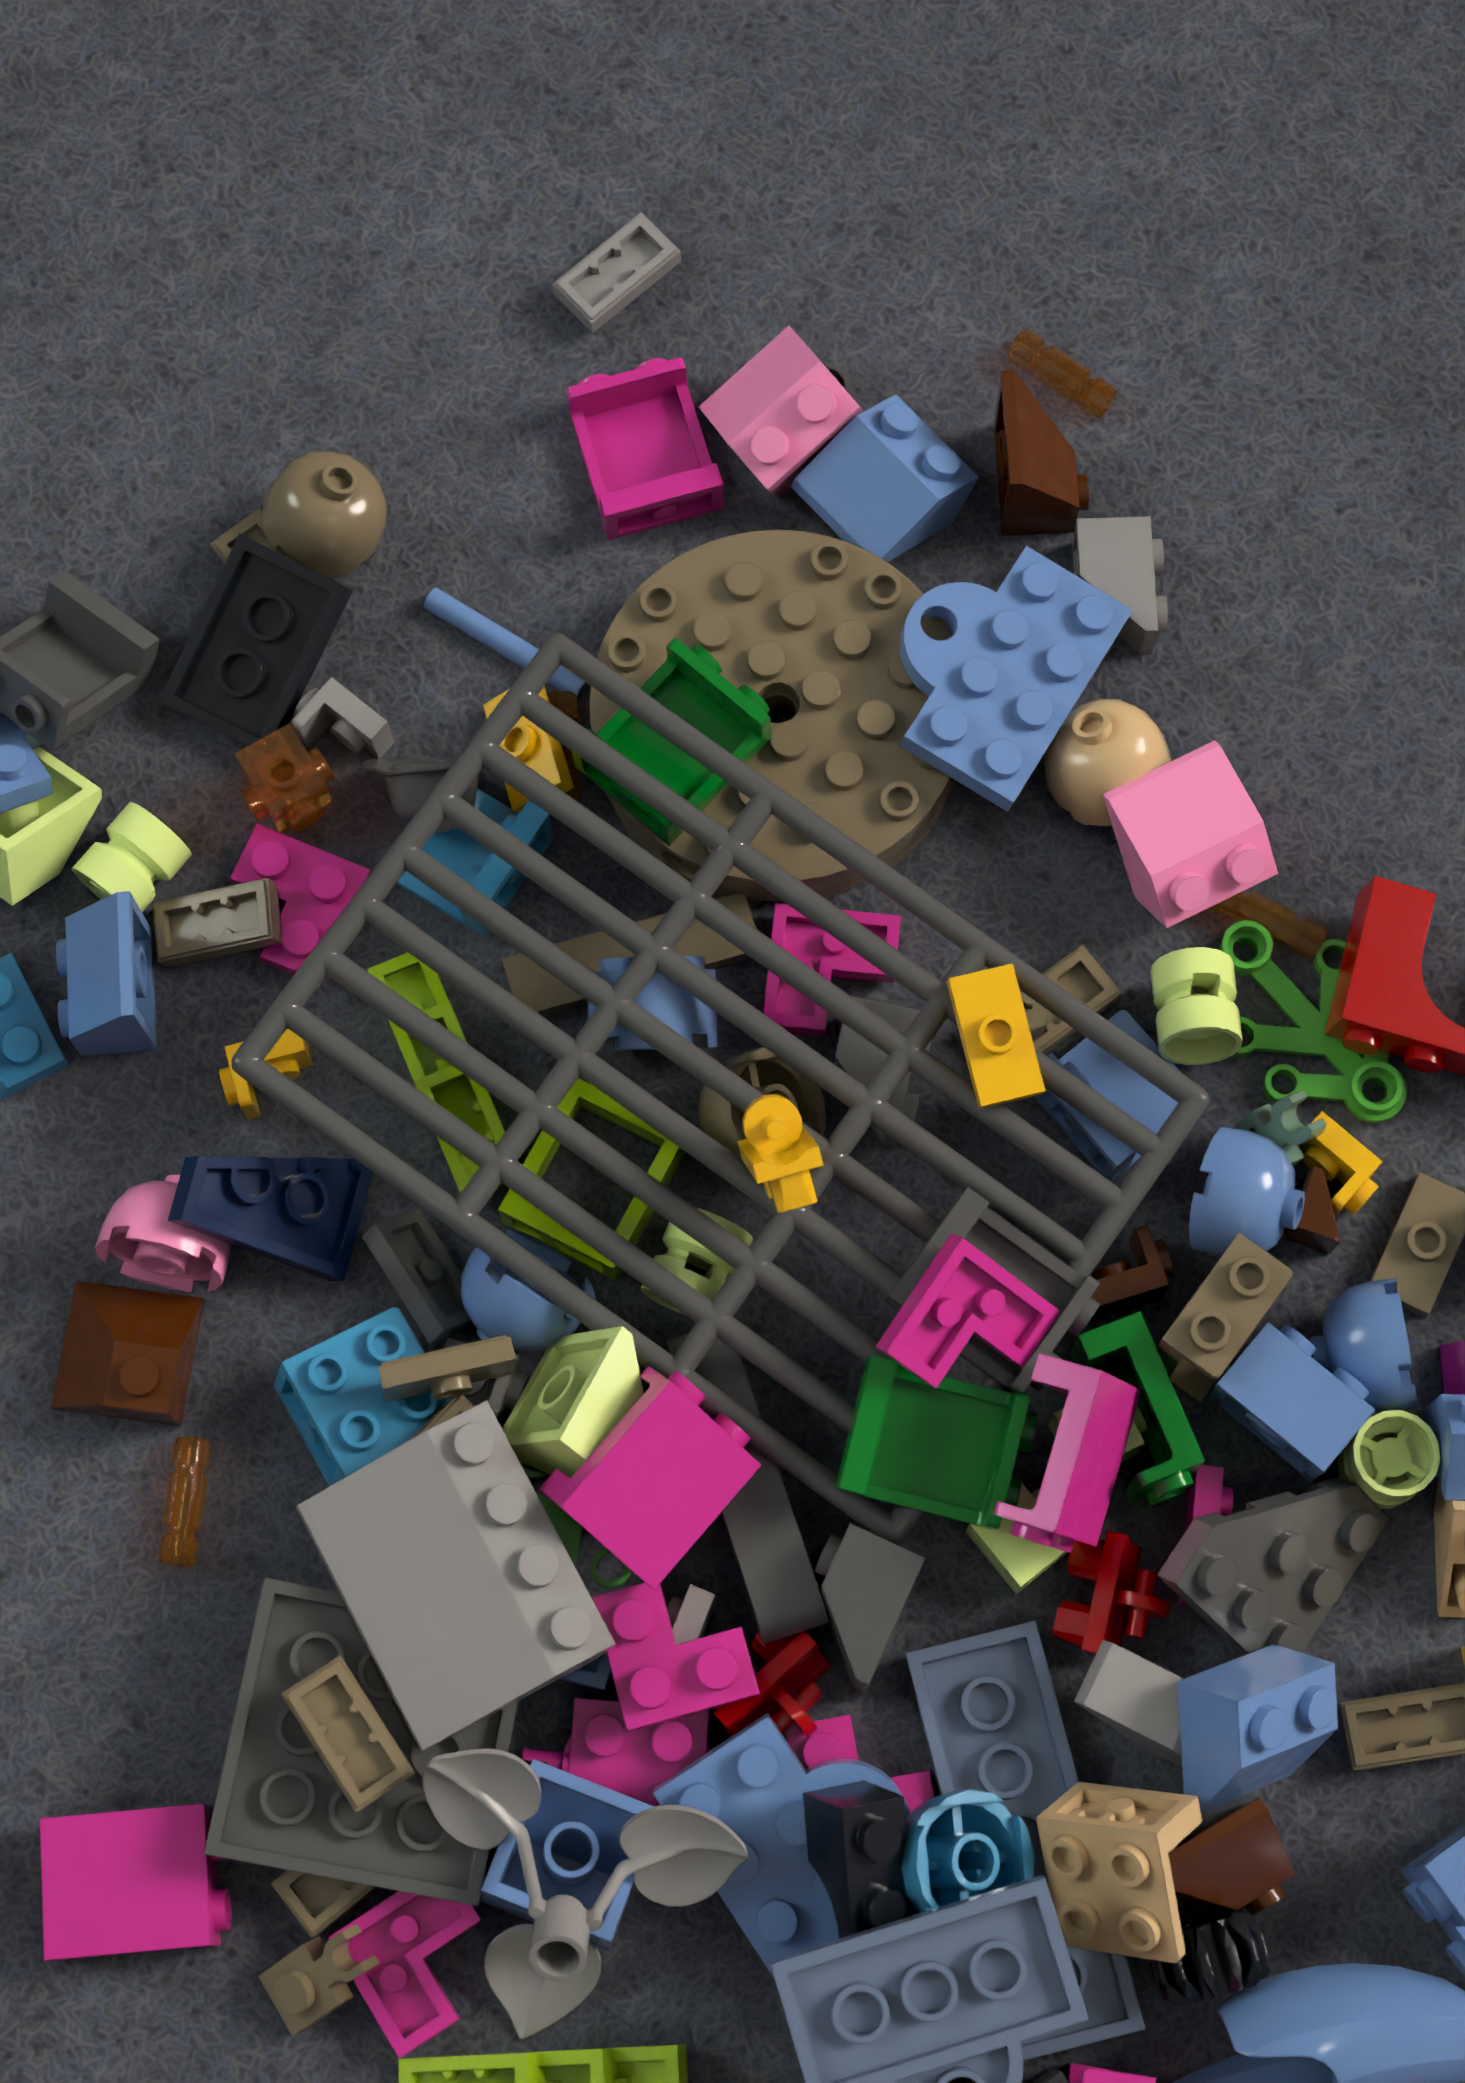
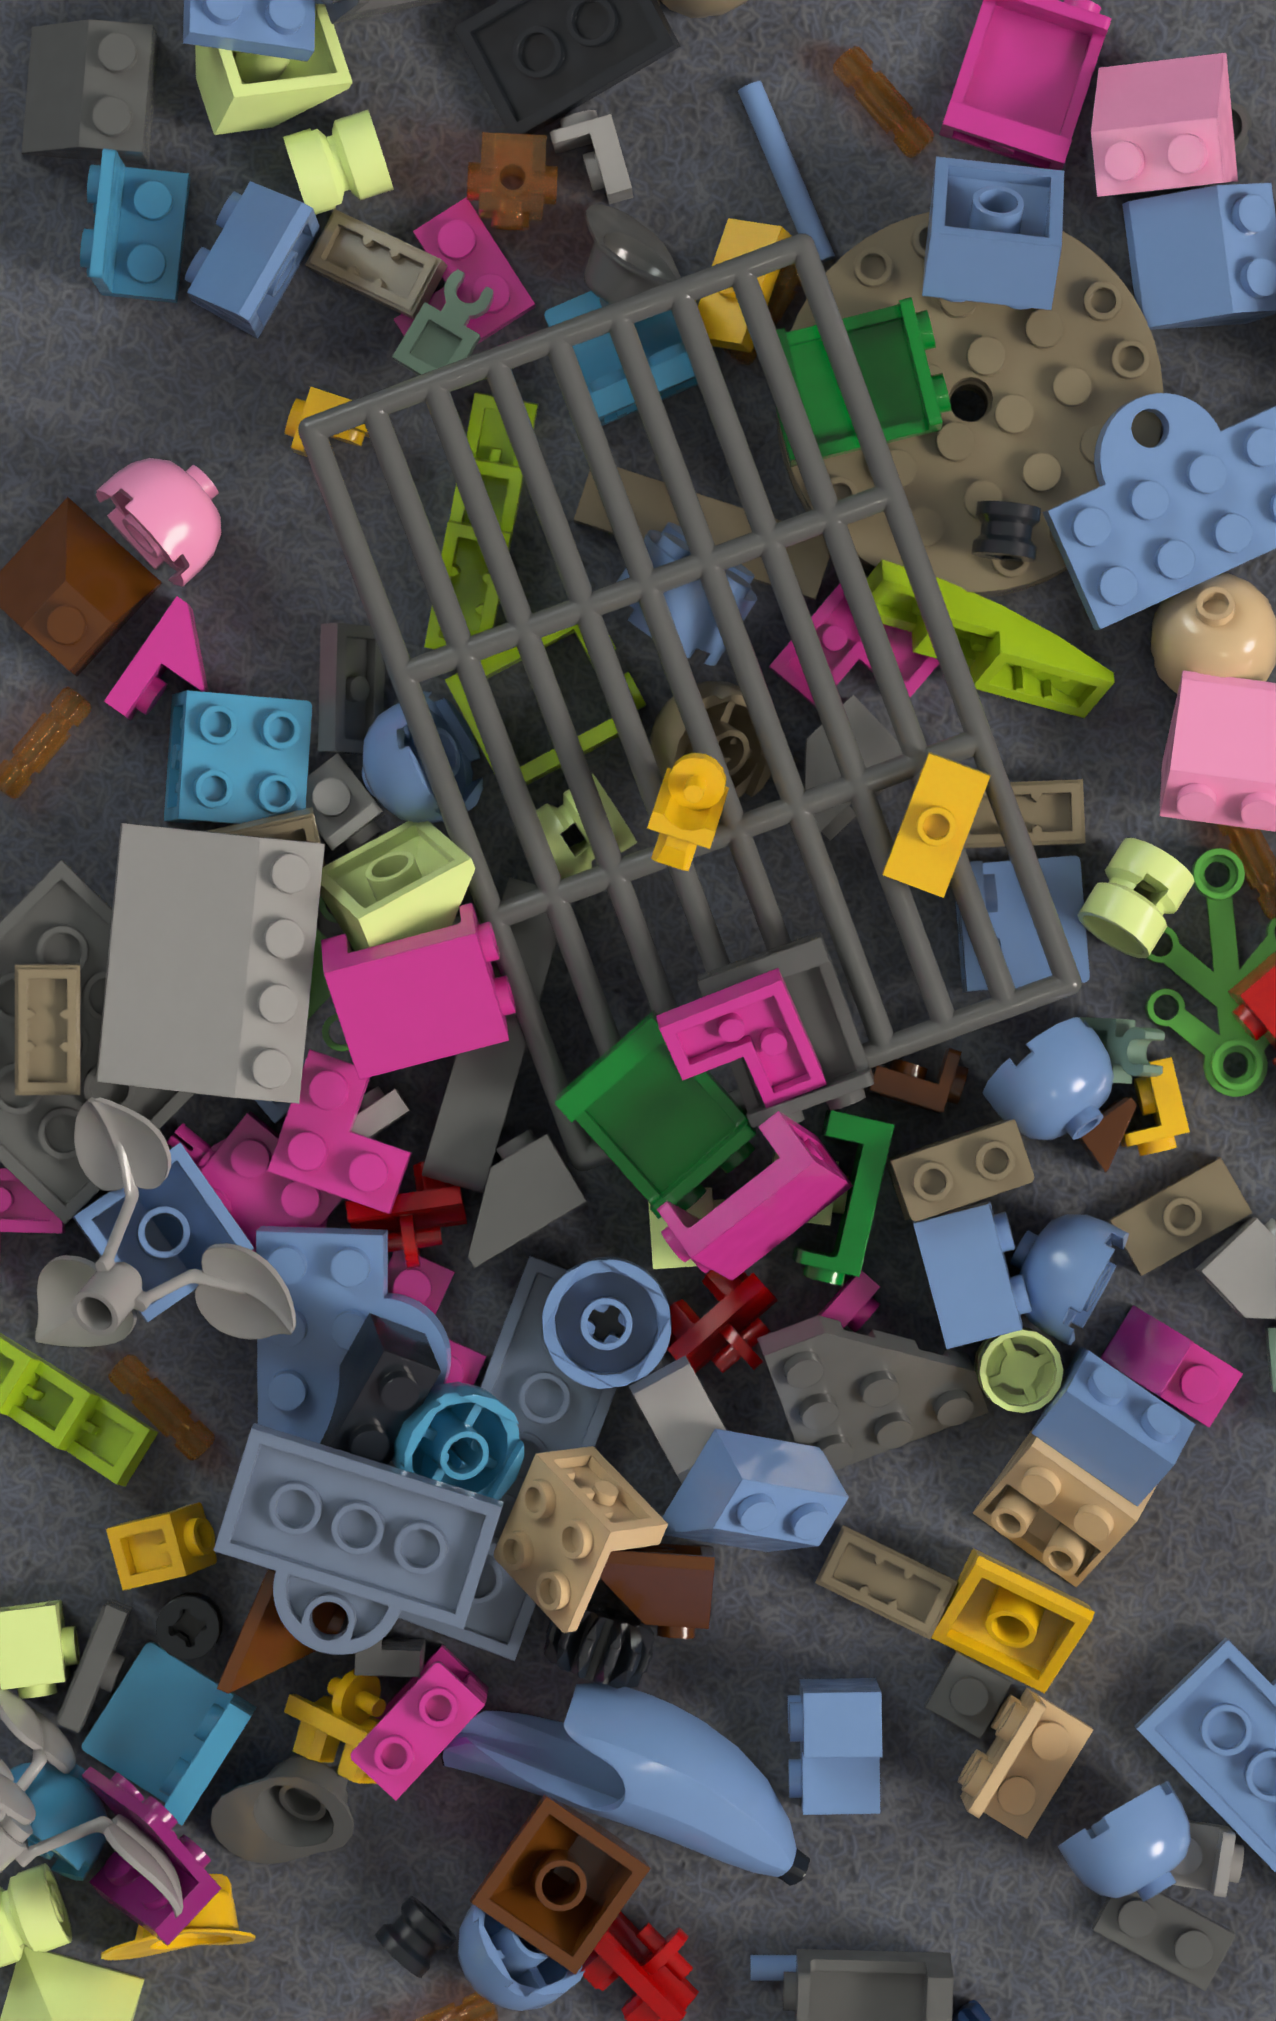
camera: 30 degrees right, 15 degrees up
(243, 1346) = (169, 646): none -> dark pink slope
(277, 1207) = (265, 554): dark blue wing -> none
(301, 931) = (442, 336): none -> sand green plate
(447, 1370) = (313, 793): dark tan plate -> none
(546, 541) = (883, 101): none -> clear orange axle
(673, 2019) = (161, 1407): none -> clear orange axle
(708, 557) = (994, 233): none -> medium blue slope
(881, 773) = (1006, 531): none -> black wheel
(966, 877) = (1000, 647): none -> lime slope
(1039, 1627) = (617, 1358): none -> medium blue brick

